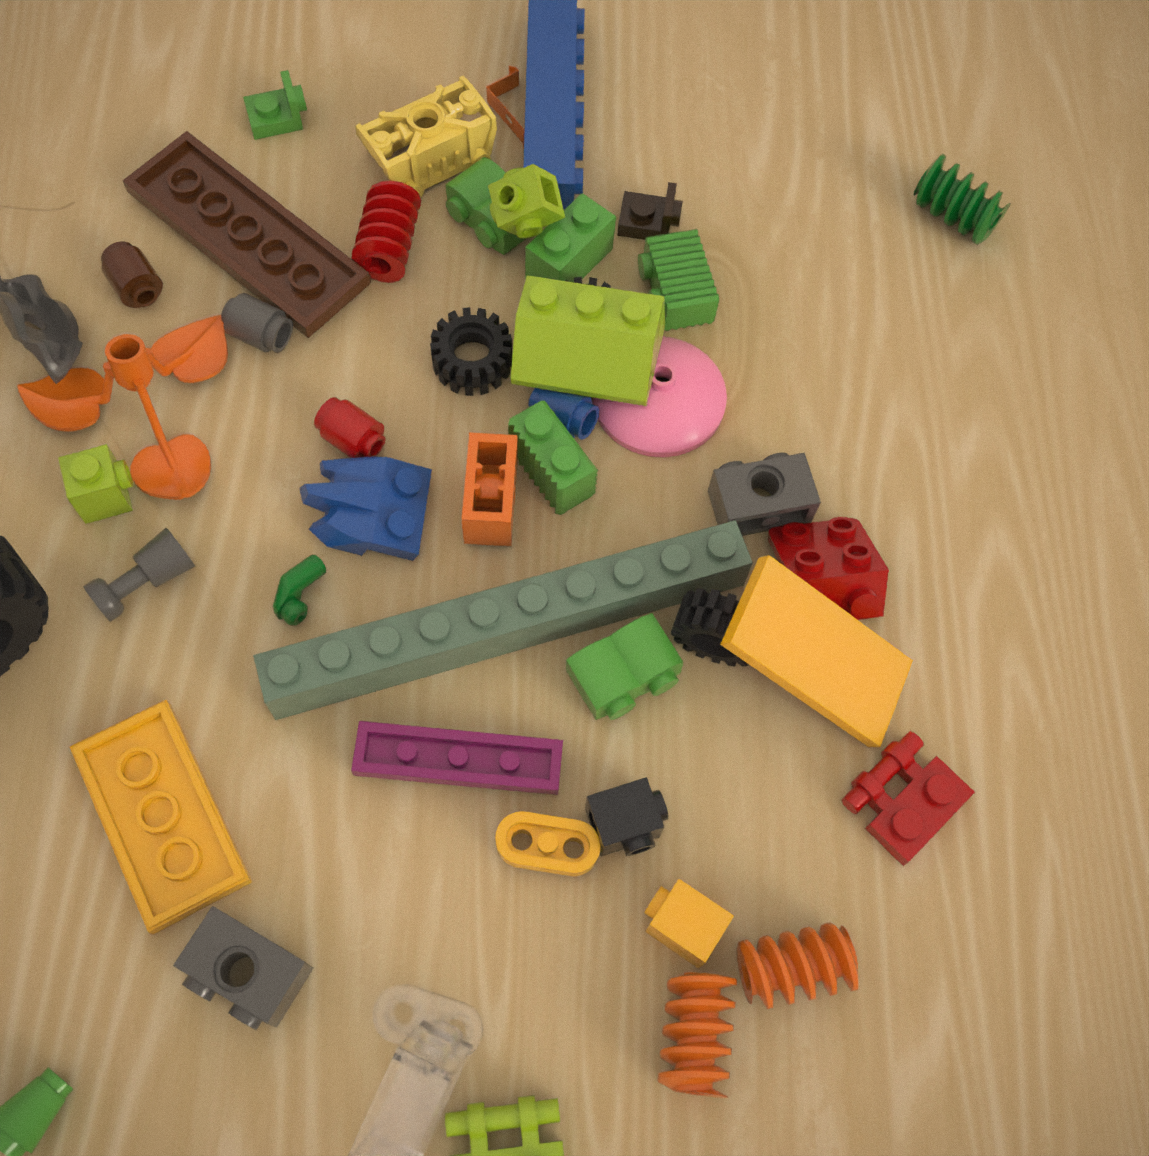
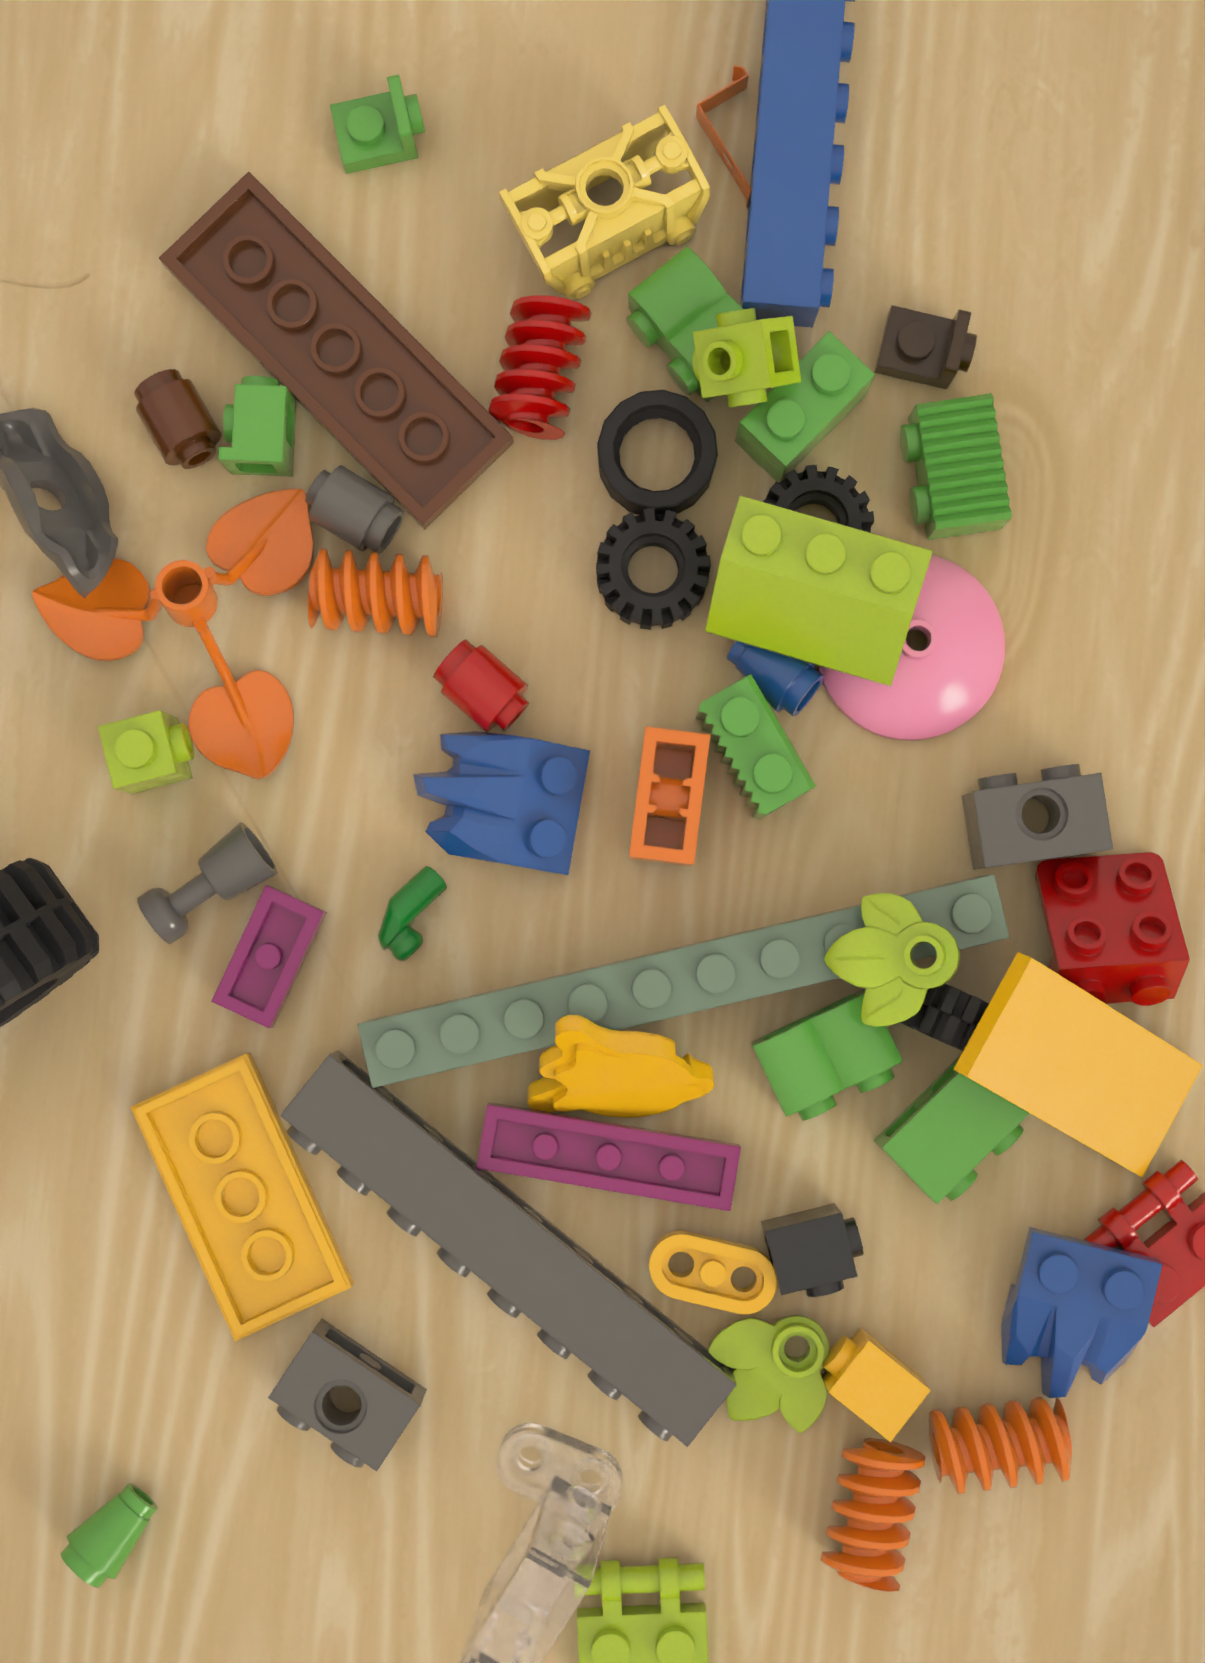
camera: 15 degrees right, 20 degrees up
(186, 625) = (269, 956): none -> magenta plate
(189, 279) = (260, 429): none -> bright green brick
(270, 373) = (375, 593): none -> orange piece
(383, 834) = (510, 1248): none -> dark grey brick
(460, 683) = (615, 1072): none -> yellow tile
(467, 254) = (652, 406): none -> black tyre
(598, 928) = (768, 1375): none -> lime plate
(660, 575) = (883, 961): none -> lime plate
(726, 716) = (950, 1133): none -> bright green brick
(844, 850) = (1076, 1308): none -> blue plate

